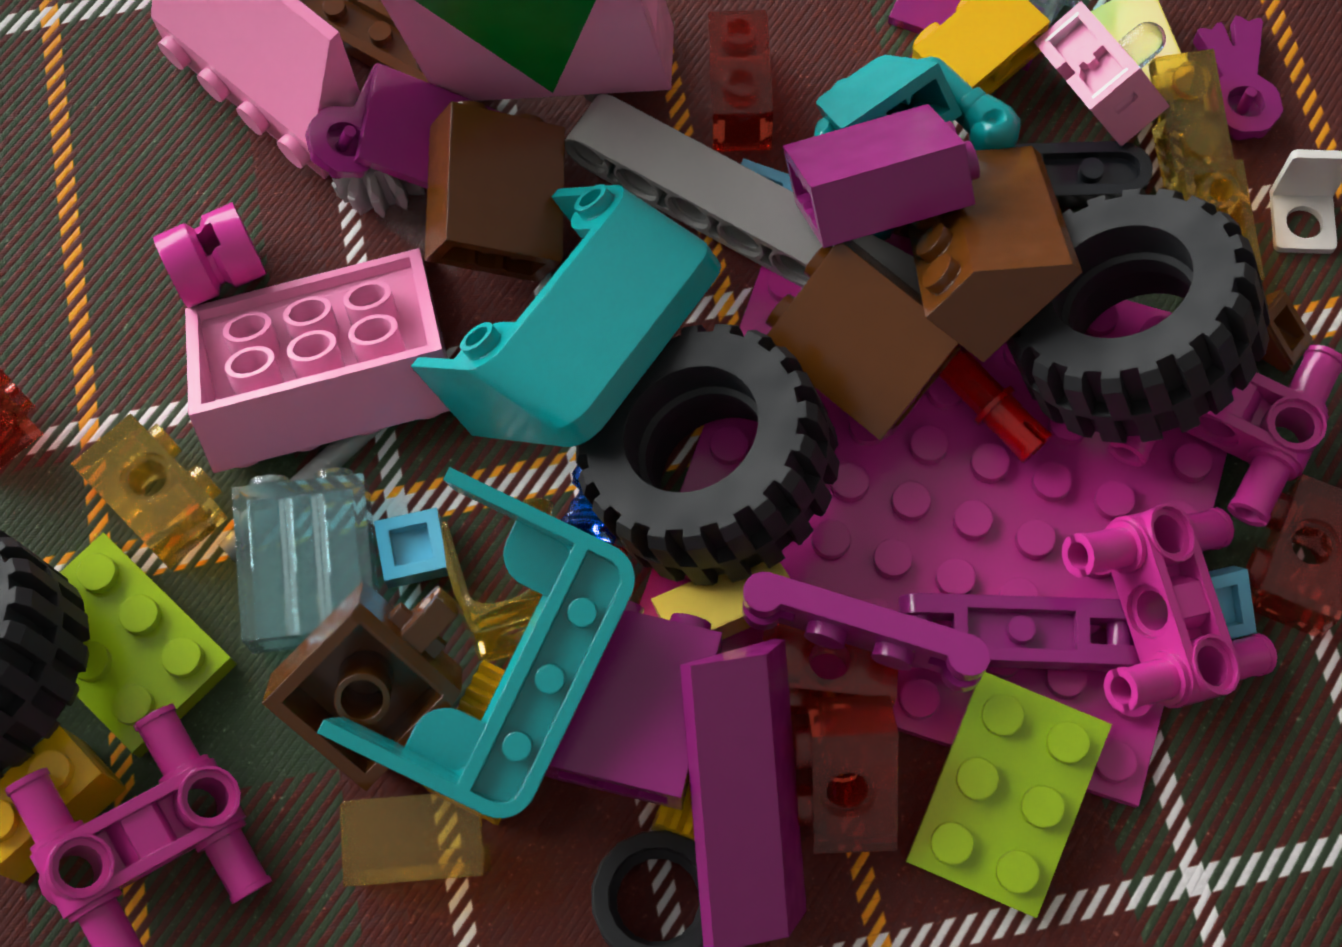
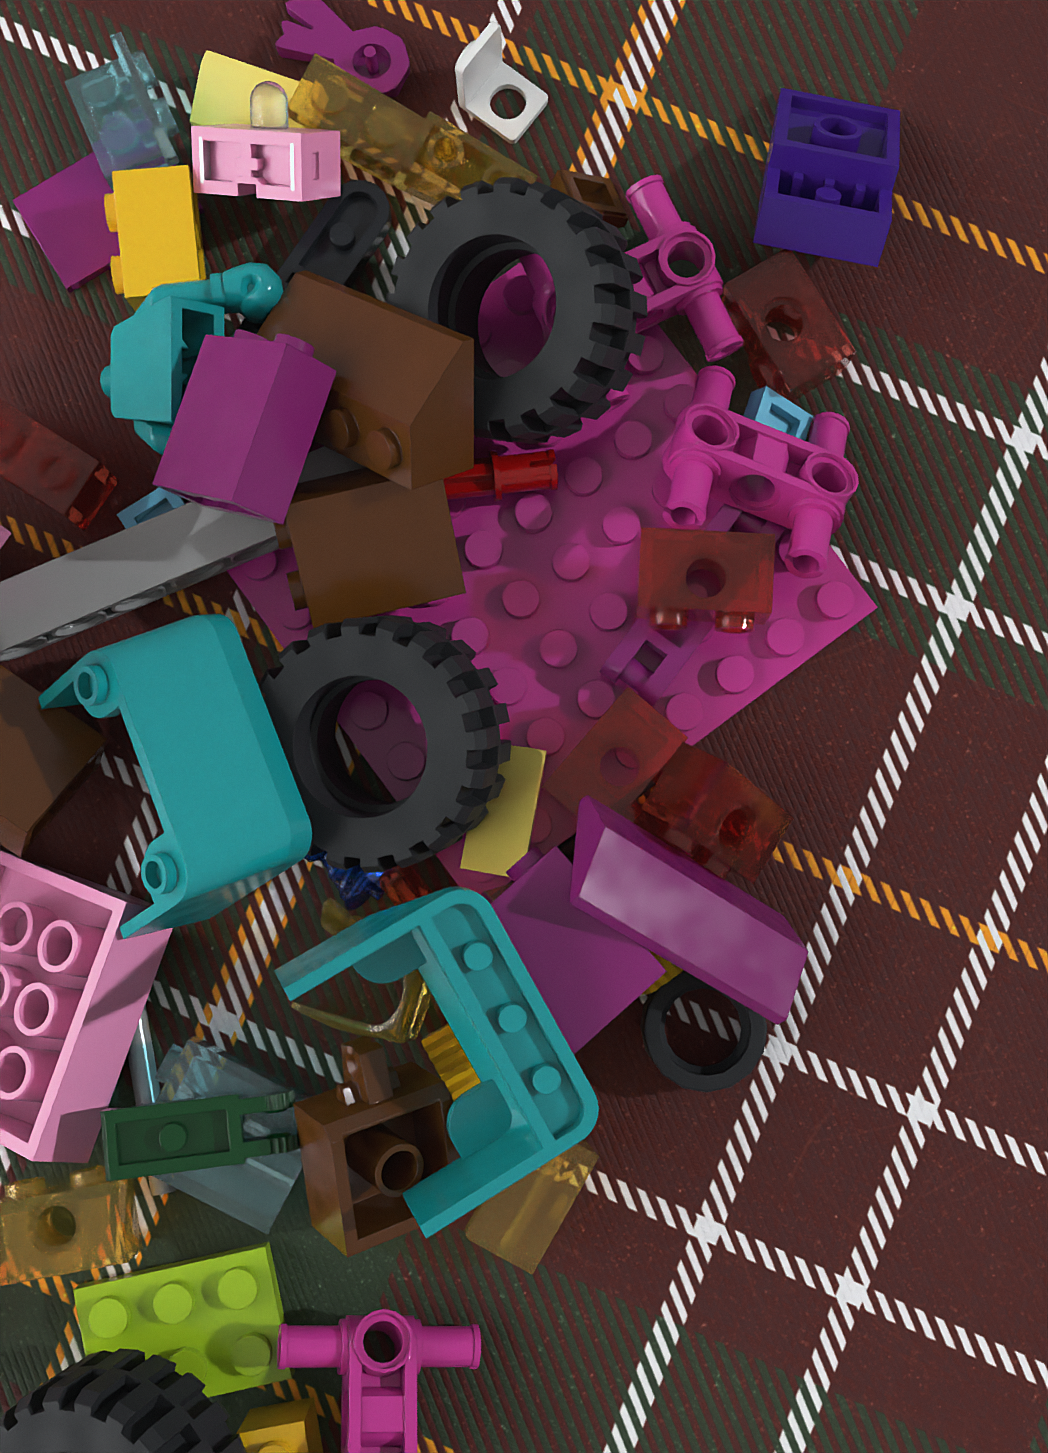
camera: 55 degrees left, 15 degrees up
(286, 518) = (190, 1134): none -> dark green hinge
(411, 548) = (273, 1034): medium azure plate -> none
(891, 636) = (648, 710): magenta plate -> none
(1008, 794) = (806, 701): lime plate -> none
(1039, 577) = (737, 559): none -> clear red brick

